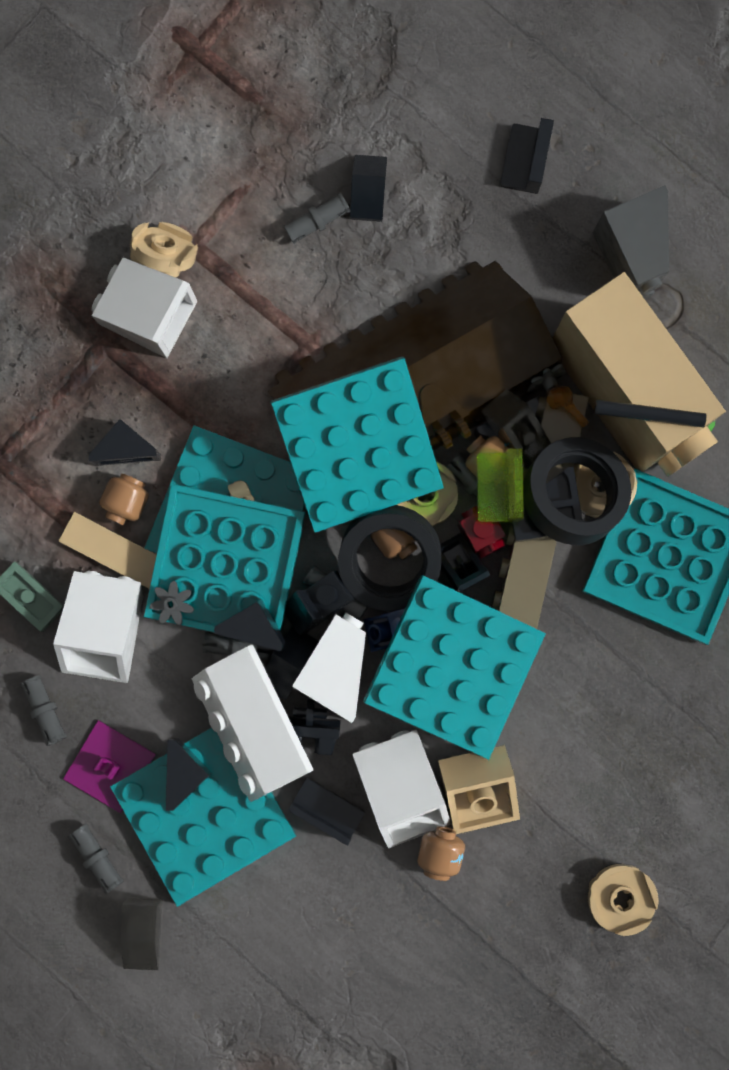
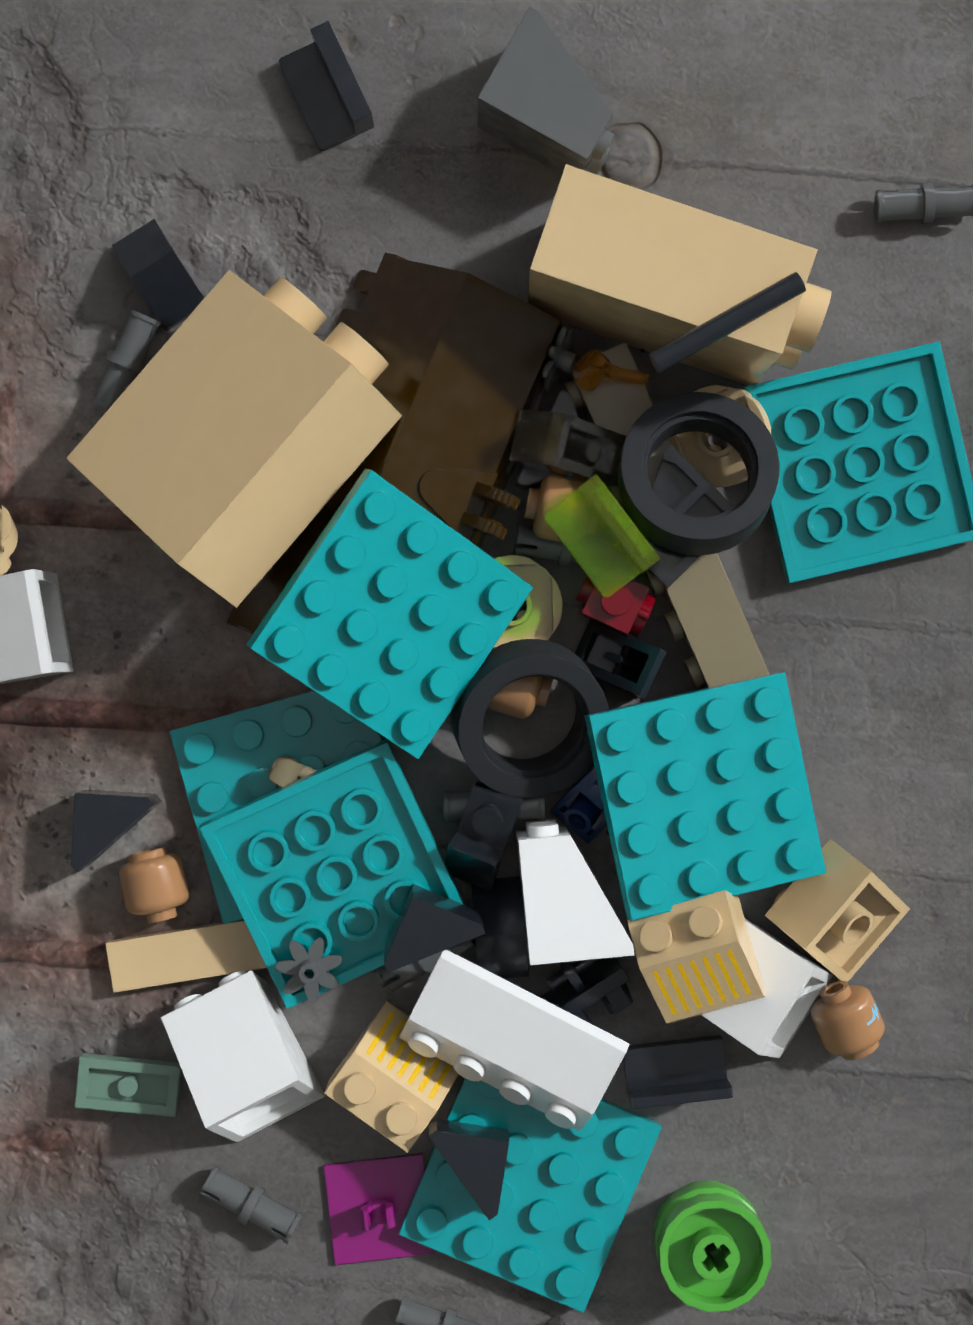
camera: 35 degrees left, 5 degrees up
(169, 698) = (389, 1081): none -> tan slope
(271, 942) = (718, 1275): none -> bright green wheel
(350, 292) = (239, 432): none -> tan brick
(385, 751) = (697, 957): none -> tan slope

